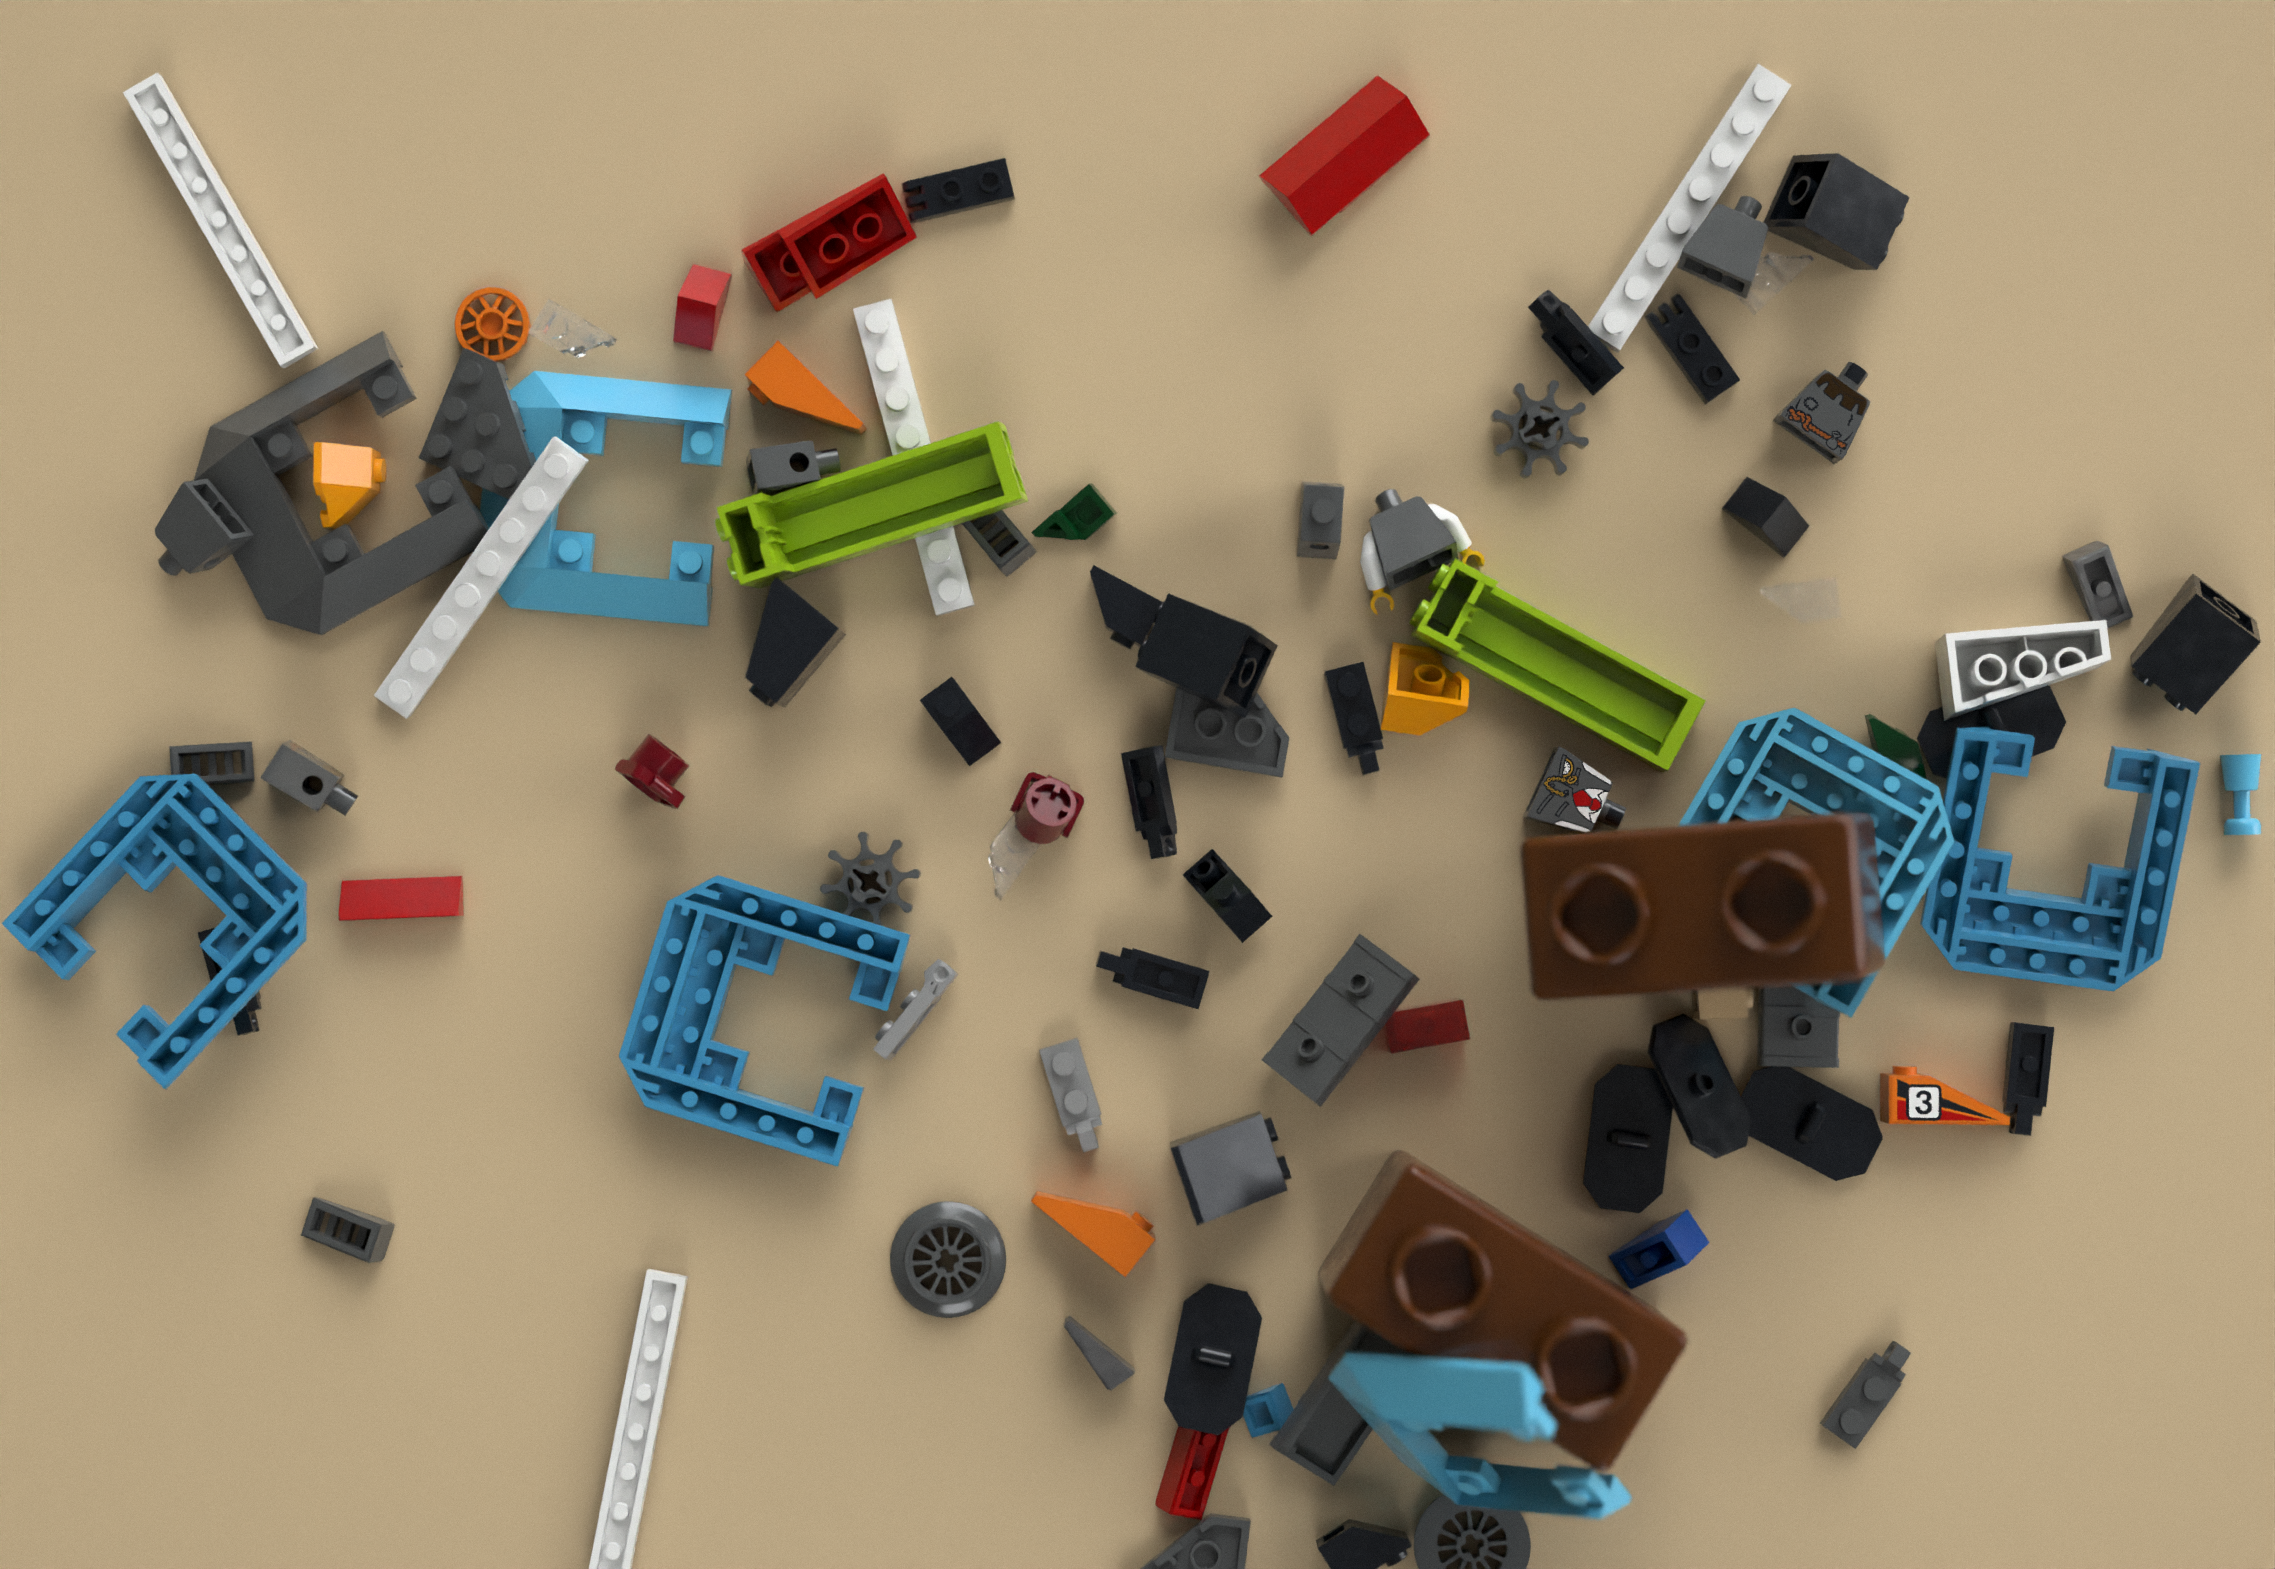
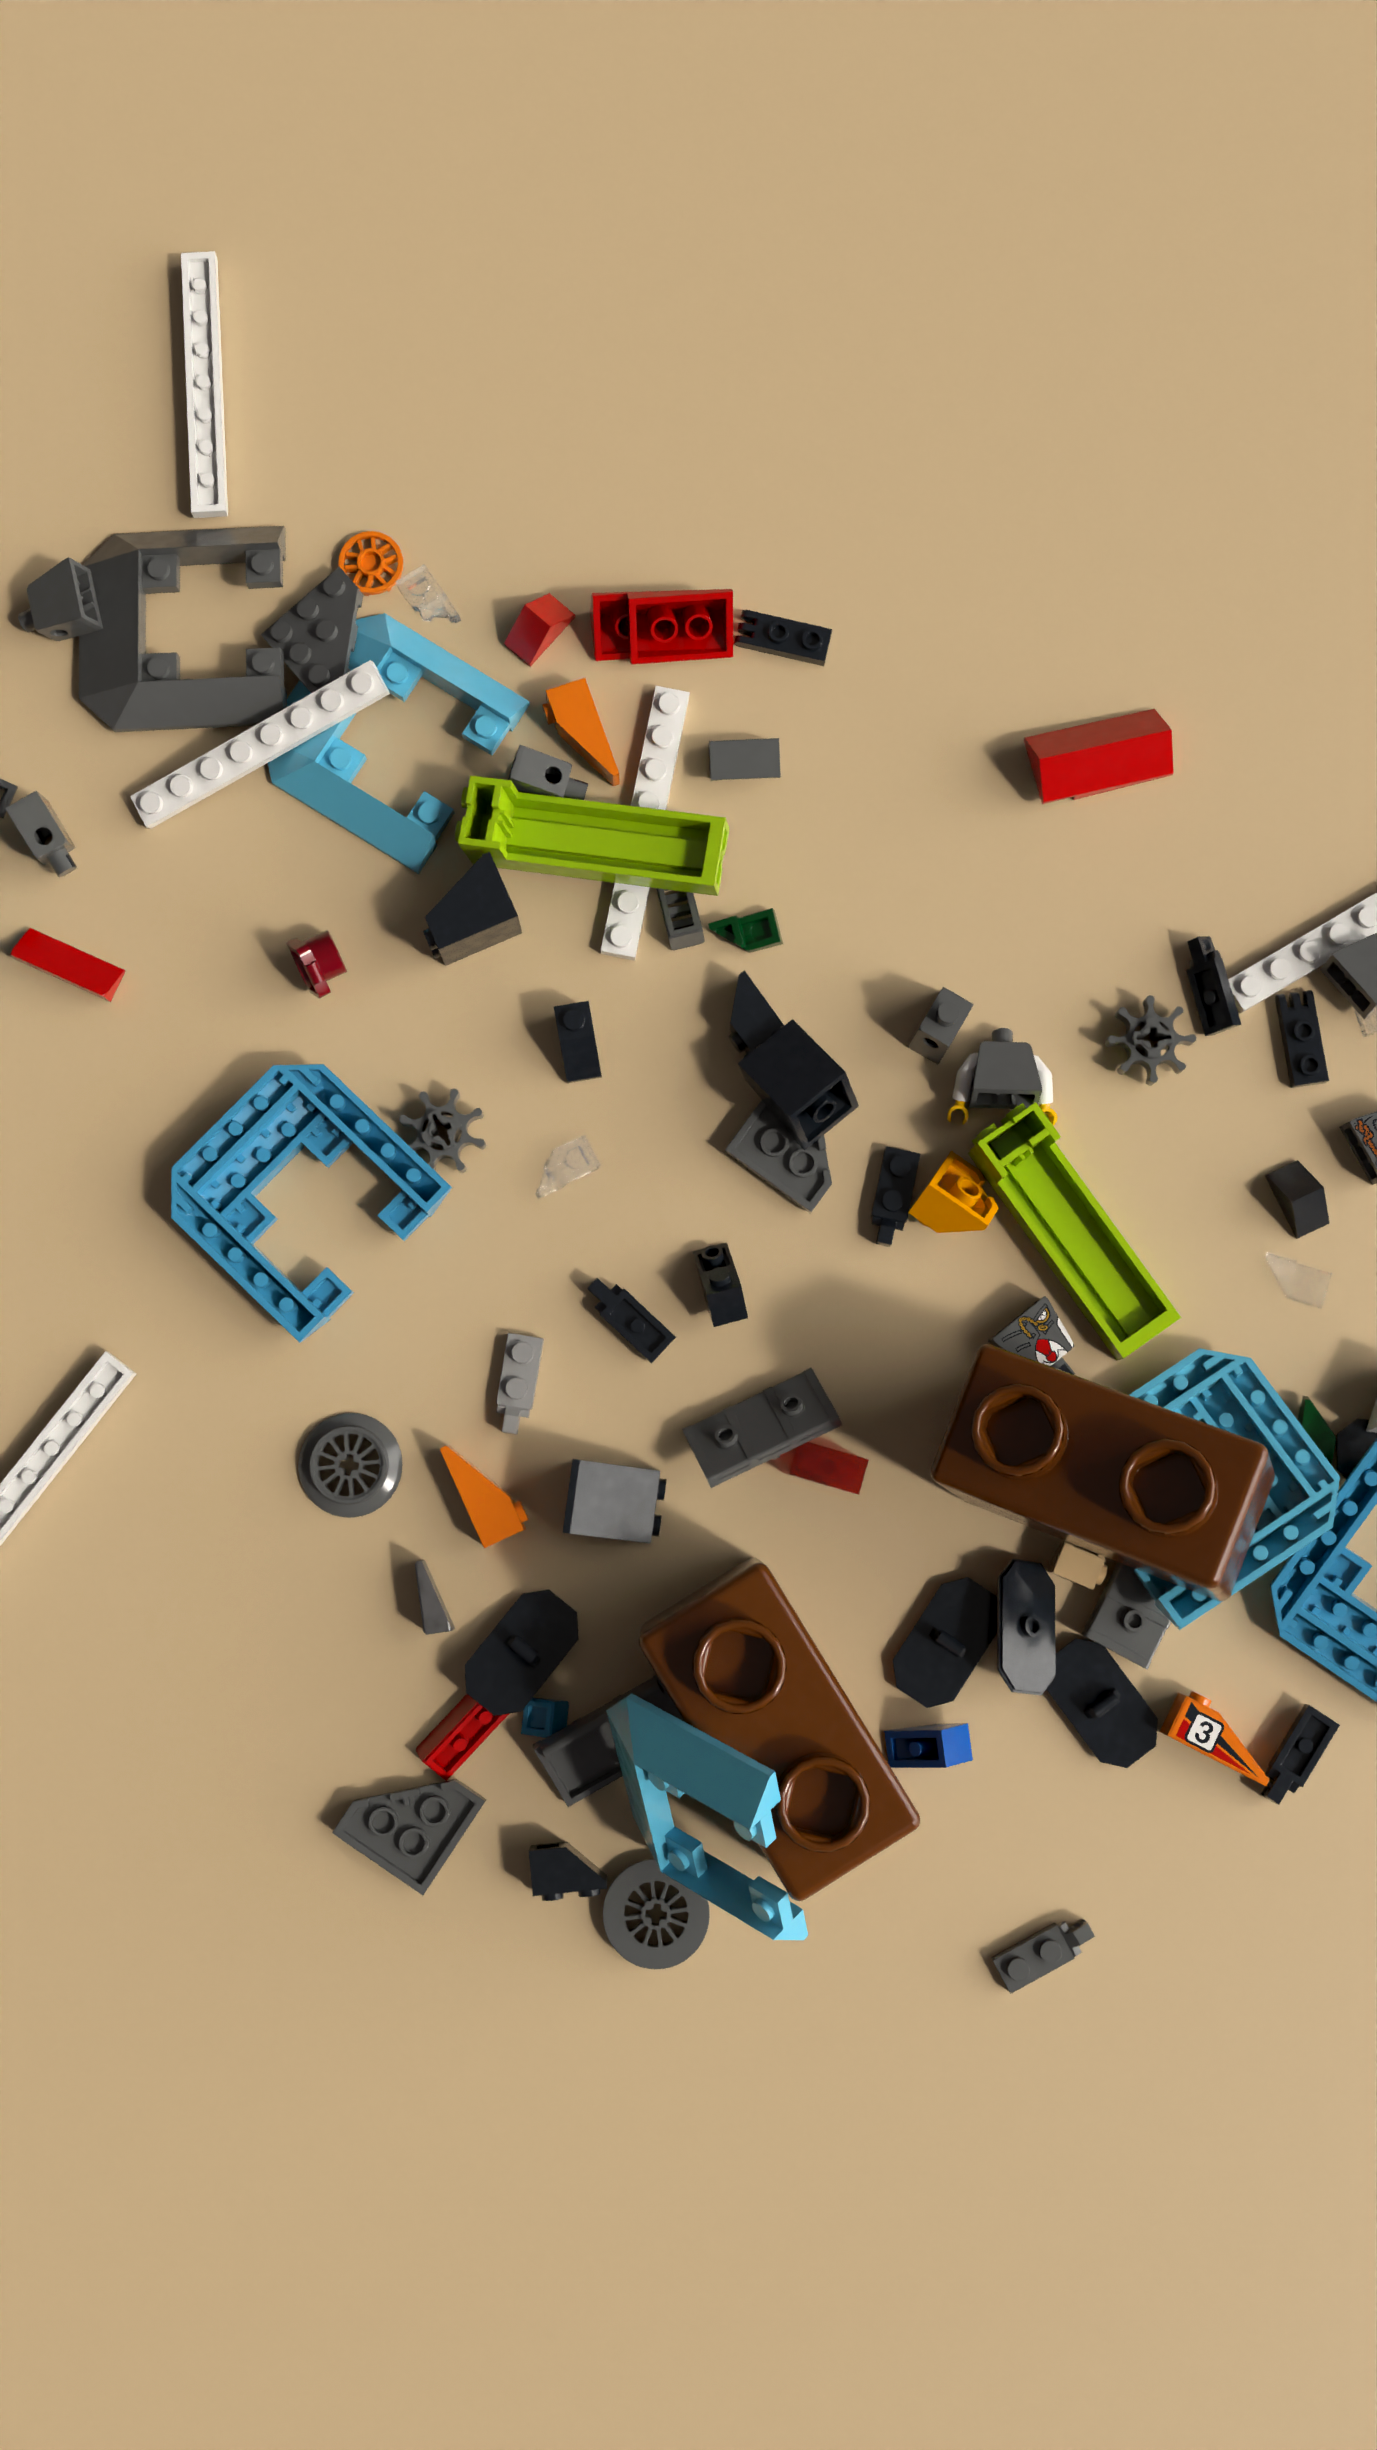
camera: 20 degrees right, 5 degrees down
(346, 480) = (195, 621): light orange slope -> none
(916, 1009) = (427, 1250): light grey hinge -> none
(983, 343) = (744, 759): none -> dark grey hinge
(1046, 808) = (610, 1143): dark red piece -> none
(1151, 799) = (698, 1178): black hinge -> none

